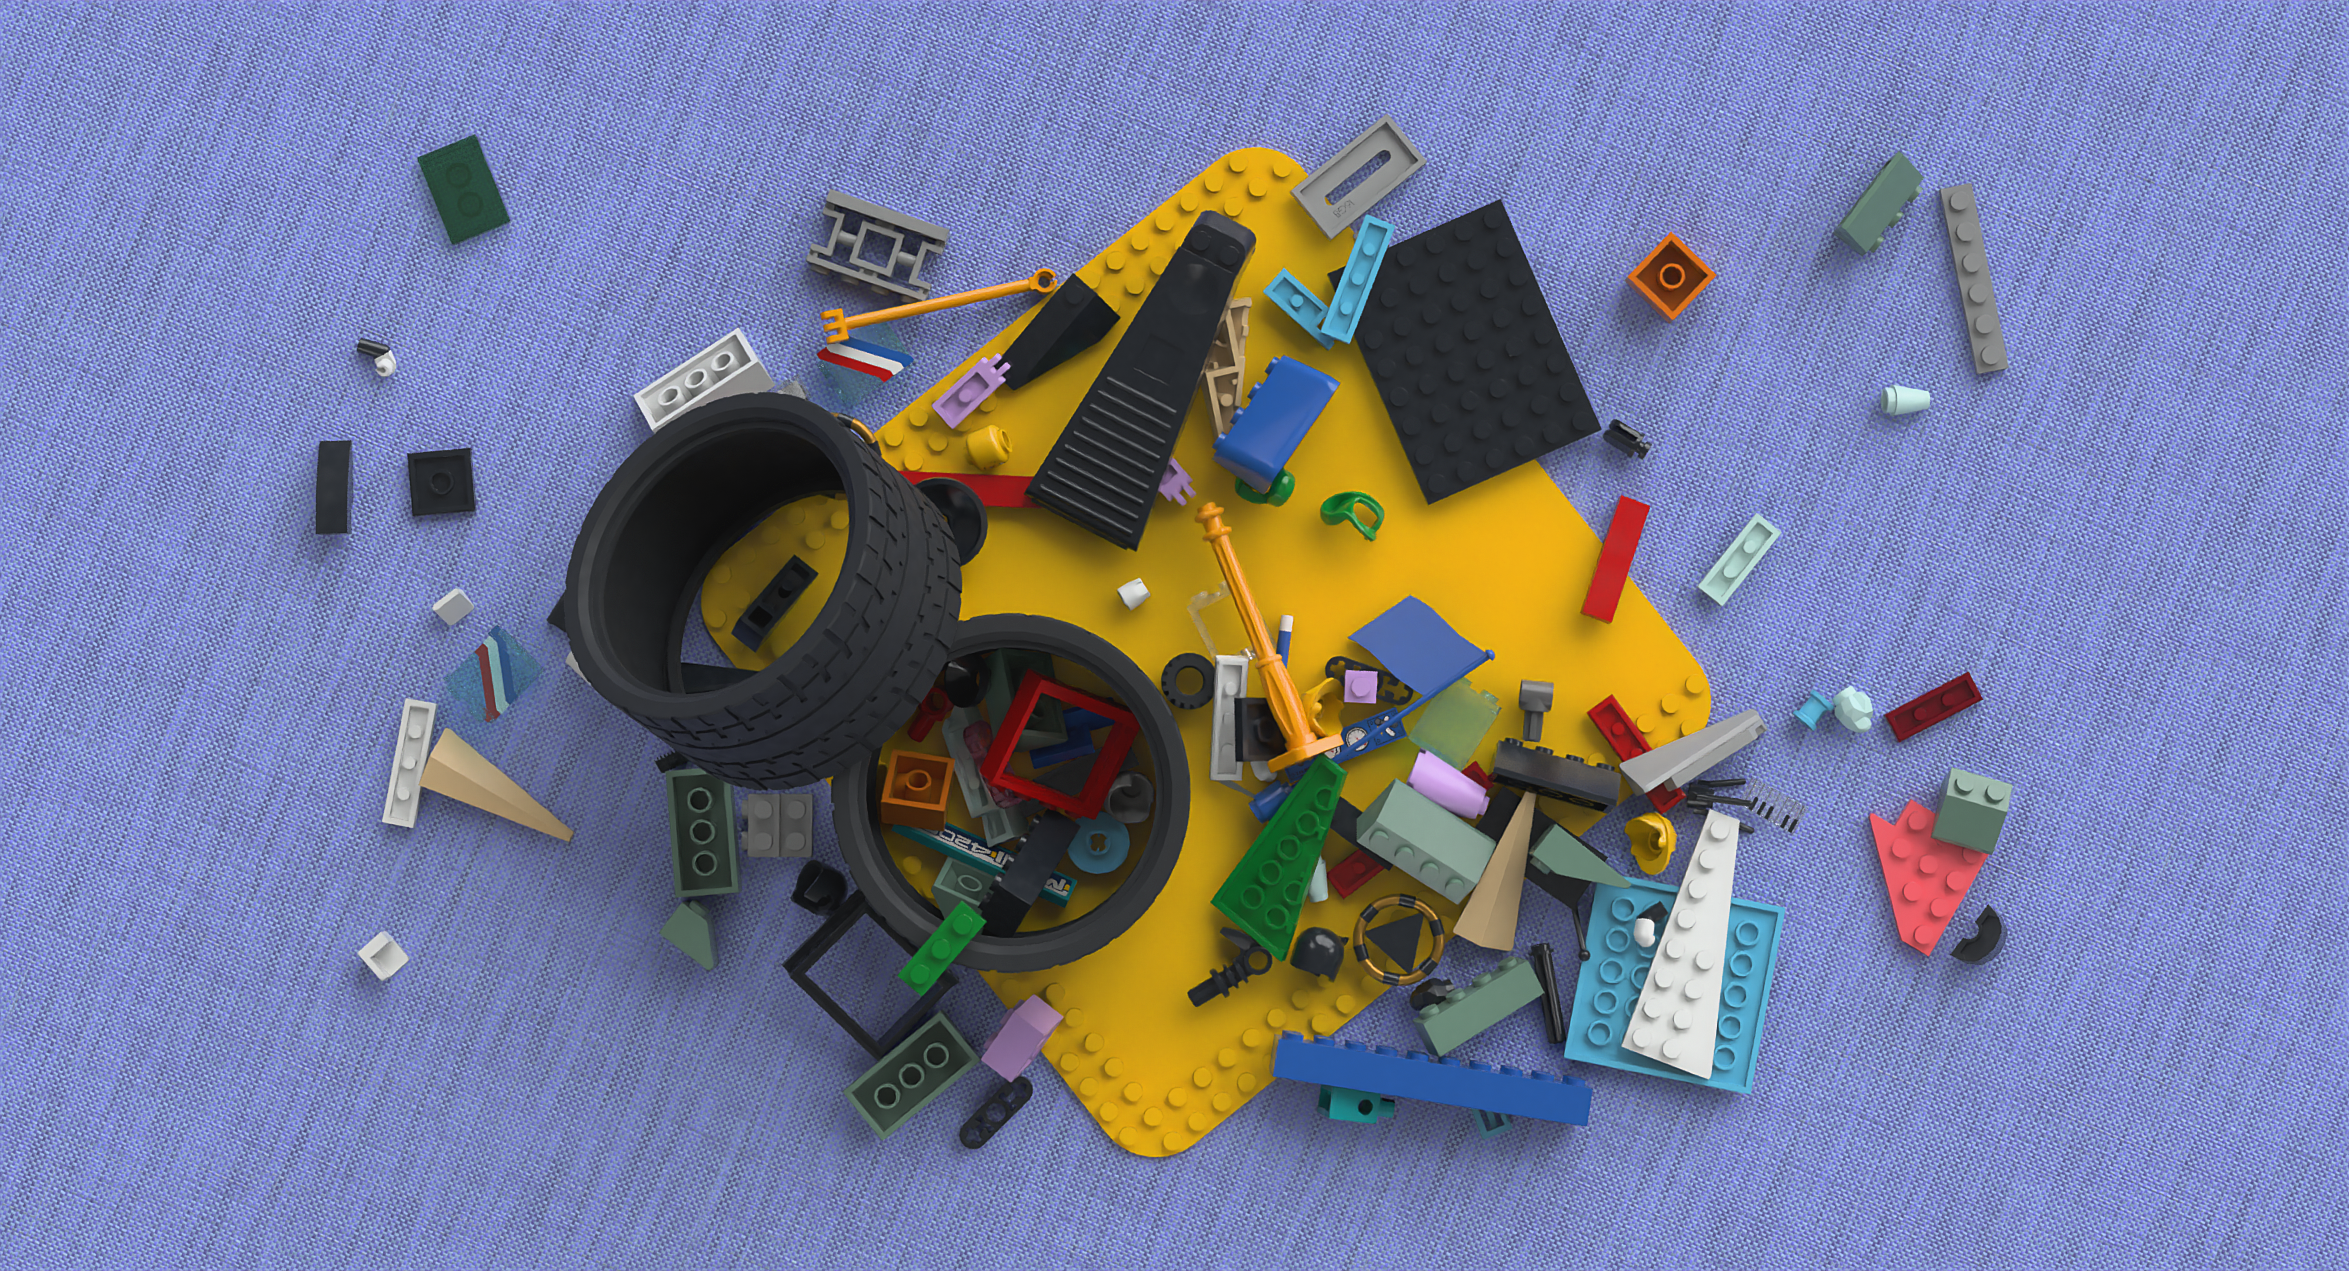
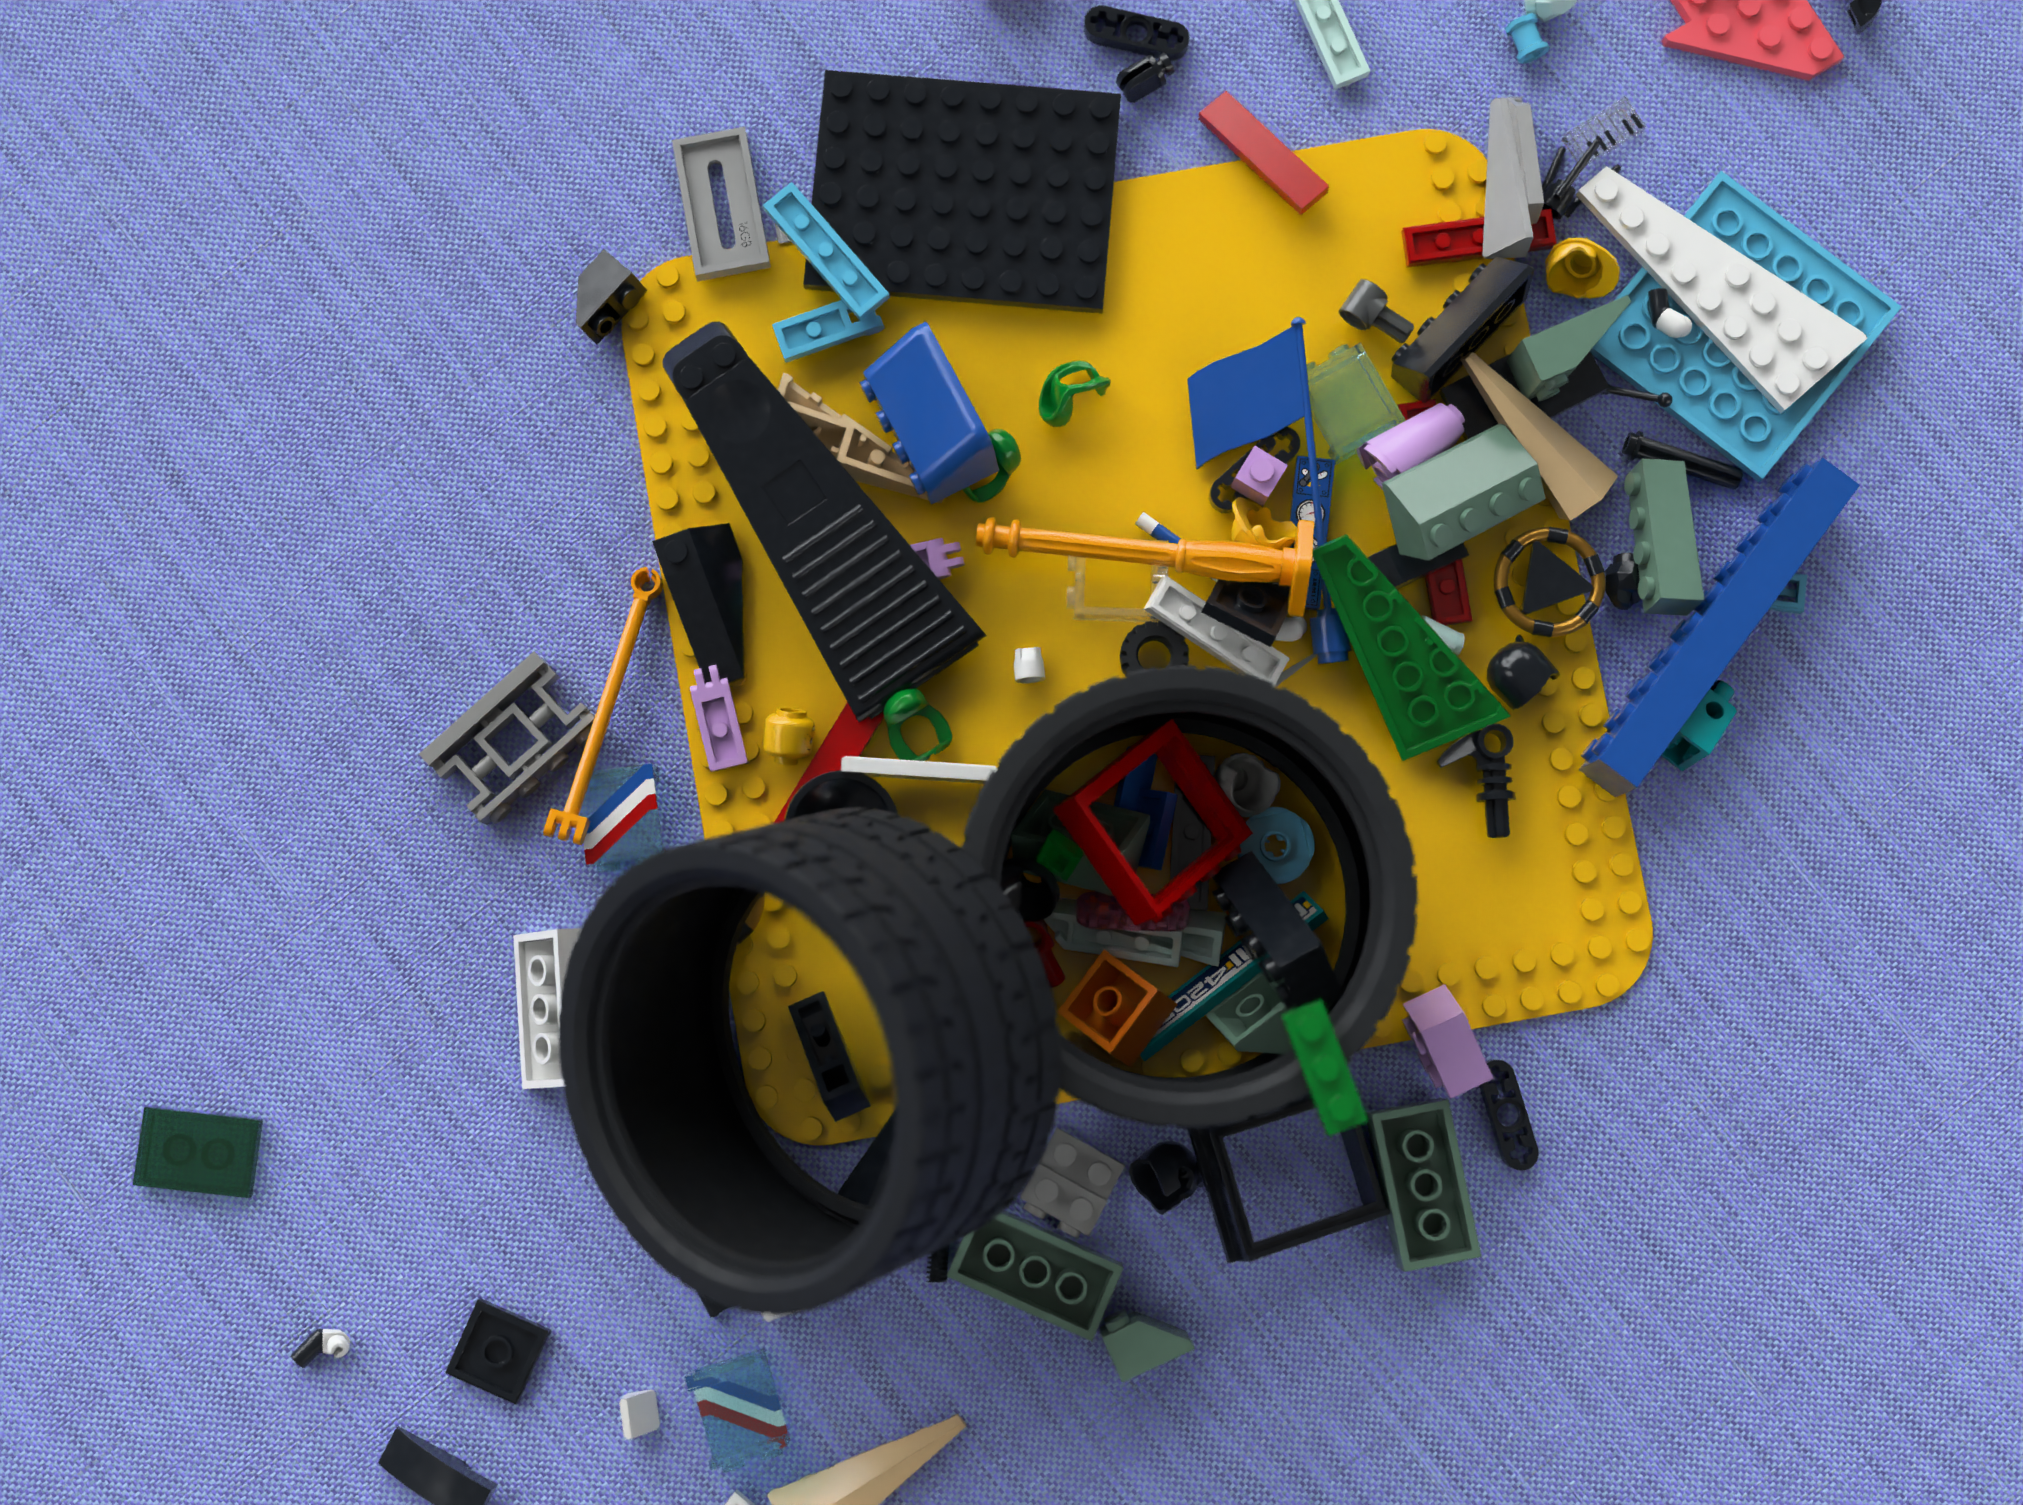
camera: 65 degrees left, 5 degrees down
(1001, 690) = (1059, 854): none -> green tile
(1012, 555) = (917, 769): none -> white tile
(1051, 519) = (906, 705): none -> green piece
(1240, 132) = (605, 296): none -> slope
(1667, 403) = (1149, 23): none -> black beam

